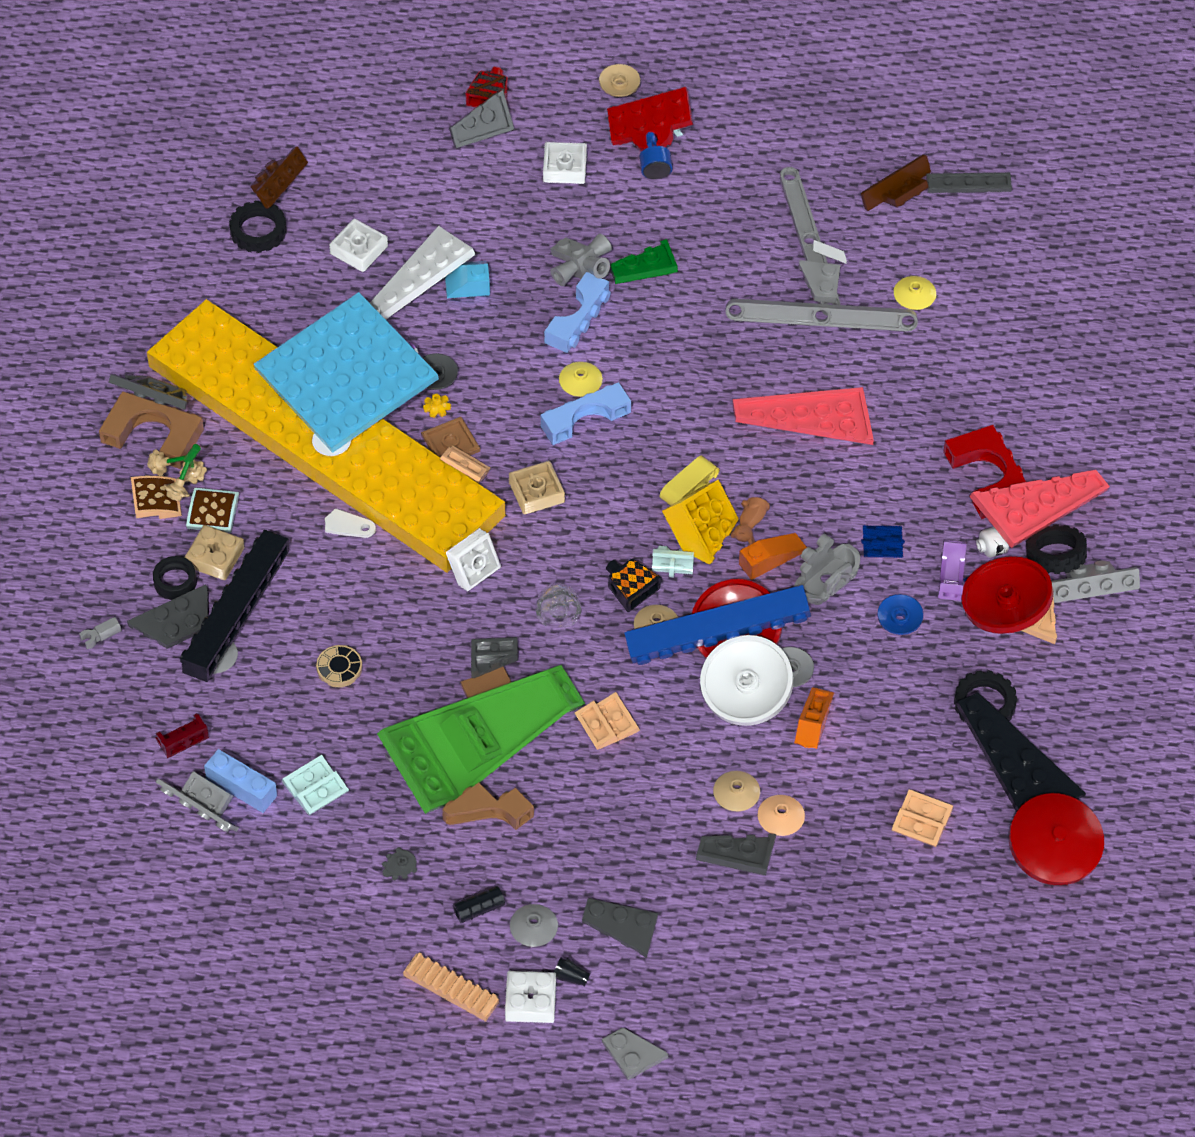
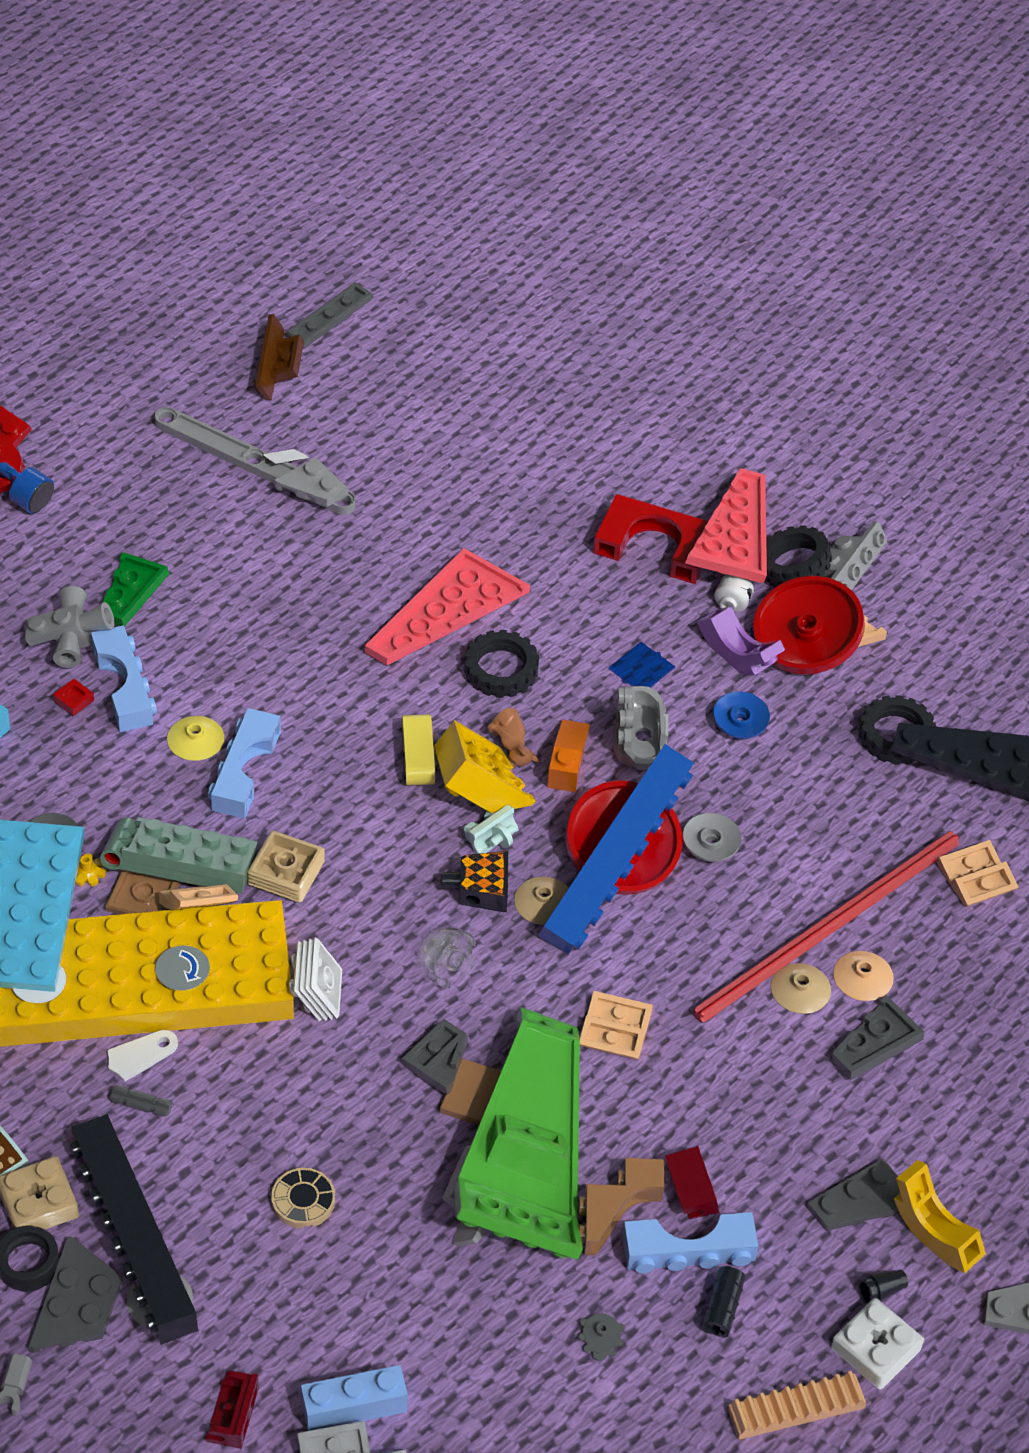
camera: 50 degrees left, 5 degrees down
(315, 785) = (426, 1335): light aqua slope -> none
(319, 548) = (141, 1100): none -> dark grey axle
(408, 493) = (182, 967): none -> light grey sticker
(488, 434) = (179, 853): none -> sand green hinge
(519, 877) = (652, 1247): none -> light blue arch
(533, 934) = (786, 1286): light grey dish -> none
(539, 833) = (692, 1183): none -> dark red hinge
(540, 302) = (73, 697): none -> red plate
(637, 963) = (933, 1224): none -> yellow arch
(746, 680) = (696, 879): white dish -> none
(796, 771) = (825, 927): none -> axle
(799, 491) = (496, 685): none -> black tyre
(813, 718) = (790, 865): orange slope -> none
(838, 315) = (333, 523): light grey beam -> none
(912, 298) = (399, 439): light yellow dish -> none

